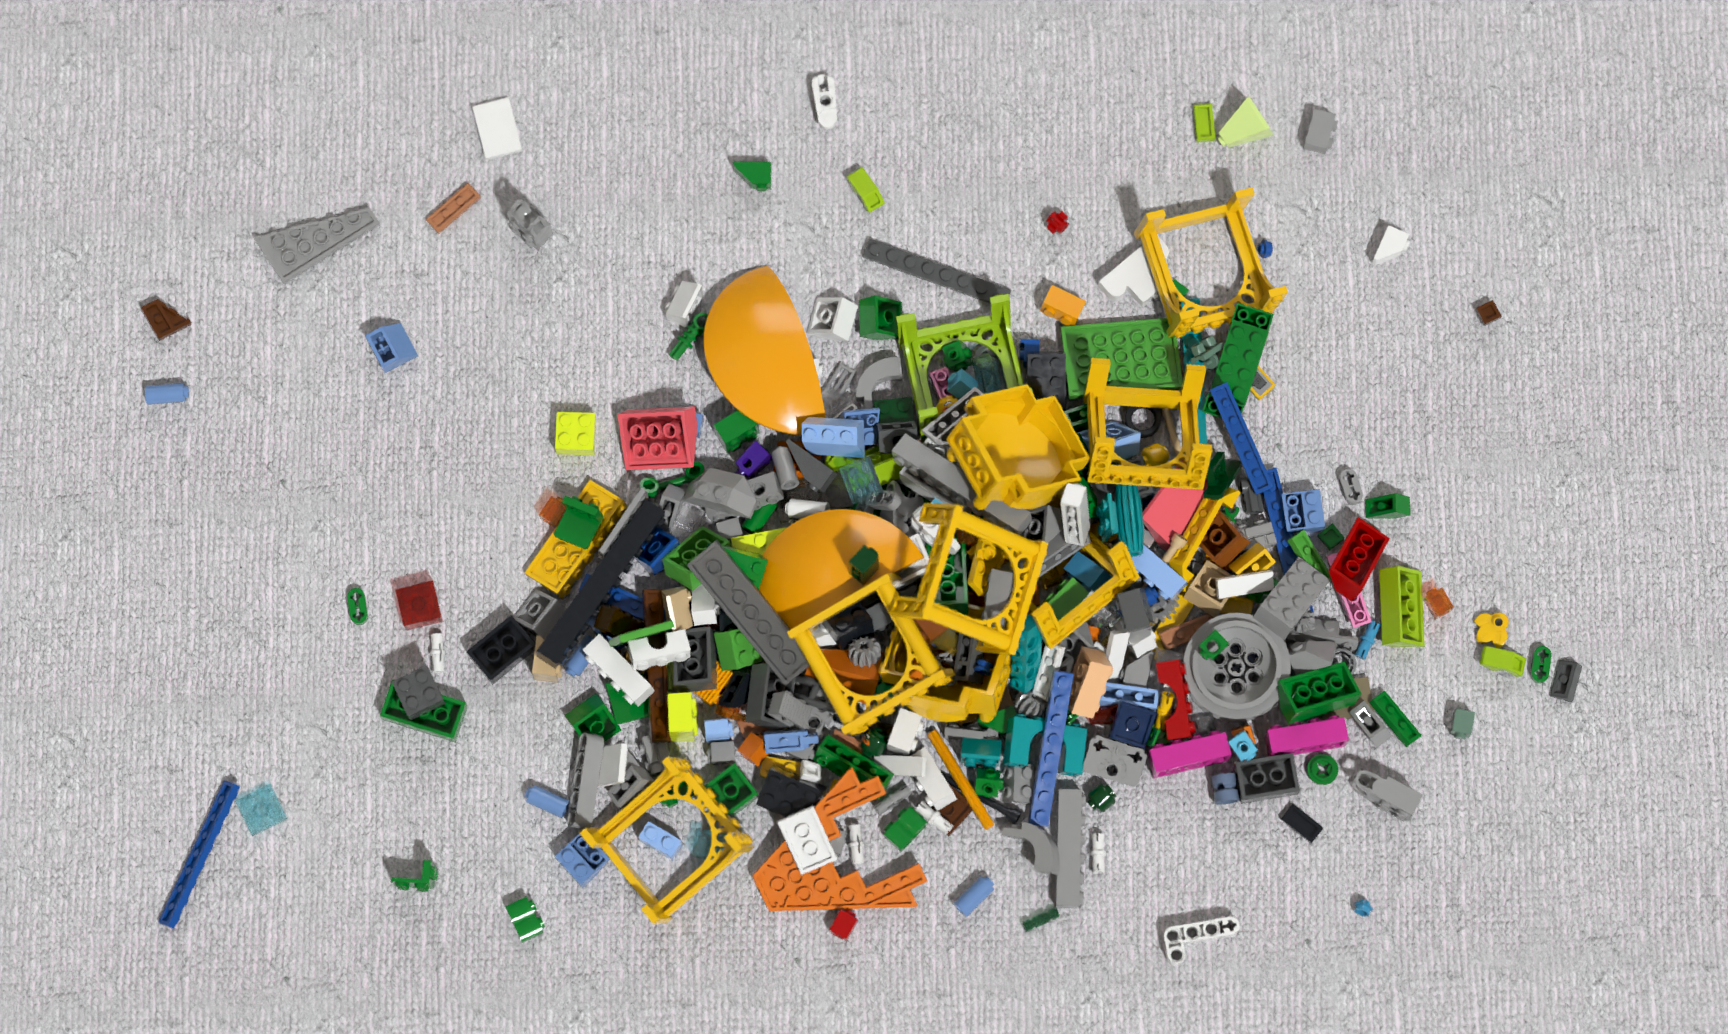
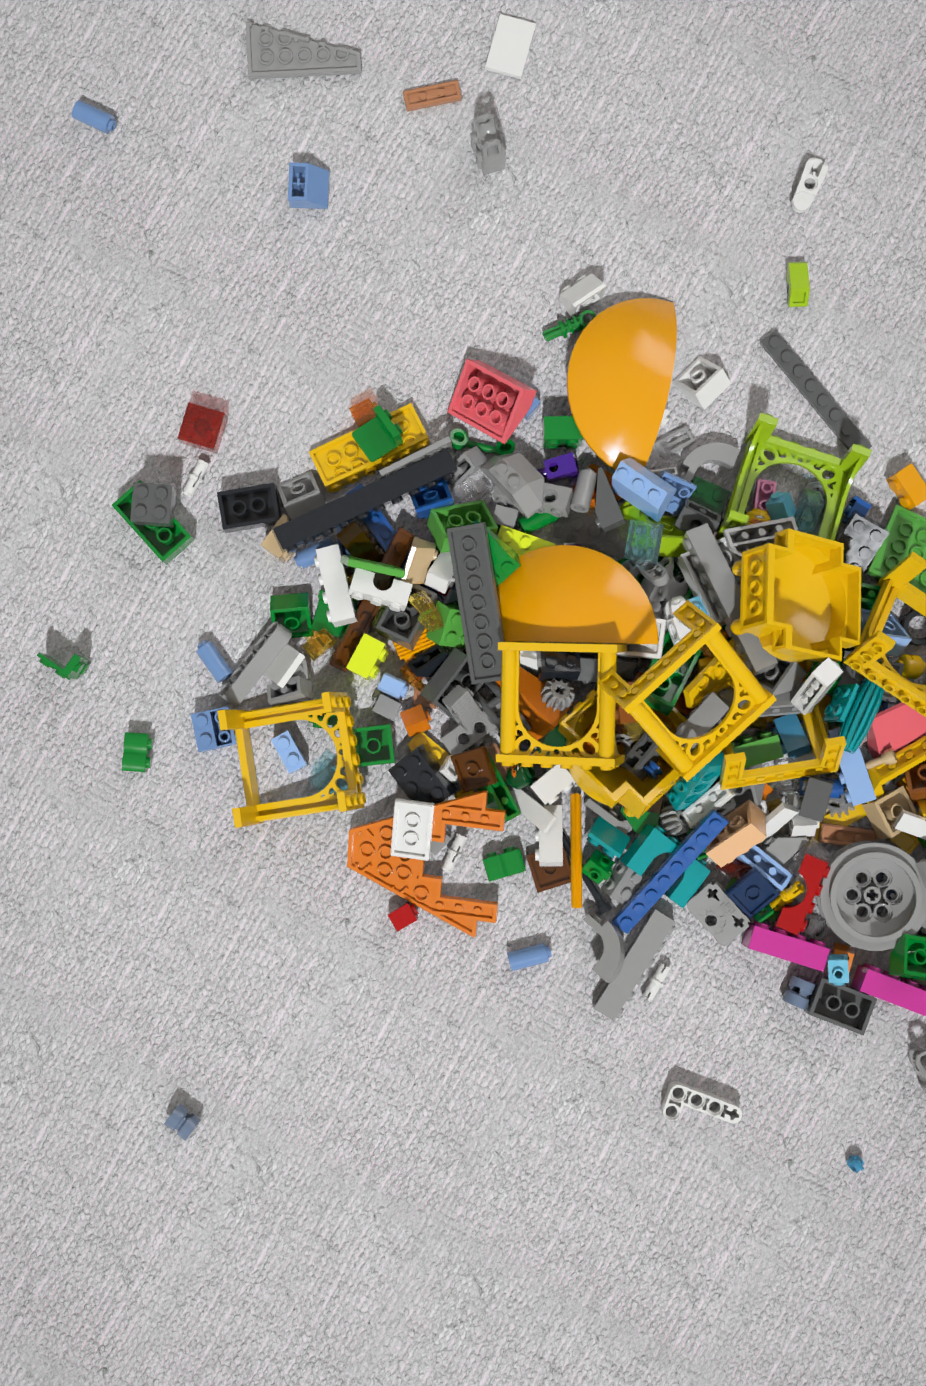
camera: 30 degrees right, 10 degrees up
(163, 319) = (128, 50): reddish brown wing -> none
(353, 607) = (155, 400): green beam -> none
(575, 433) = (422, 355): neon yellow brick -> none
(632, 731) = (319, 644): none -> clear yellow brick
(655, 755) = (329, 677): light grey brick -> none
(715, 647) = (429, 614): none -> clear yellow slope
(755, 174) = (709, 215): green slope -> none
(789, 740) = (448, 732): medium blue hinge -> none
(801, 508) = (580, 537): white brick -> none
(830, 758) = (474, 769): none -> reddish brown tile
(864, 564) = (601, 622): dark green brick -> none
(878, 317) = (743, 405): green slope -> none
(892, 799) = (509, 832): light grey pin -> none
(934, 817) = (533, 871): white pin -> none
(957, 356) = (791, 478): green brick -> none
(1040, 919) = (573, 1009): clear green axle -> none
(1101, 797) = (687, 937): dark green head -> none
(1219, 640) = (874, 870): green brick -> none
(1301, 823) = (846, 1059): black tile -> none
(1322, 760) = (899, 1028): green gear -> none

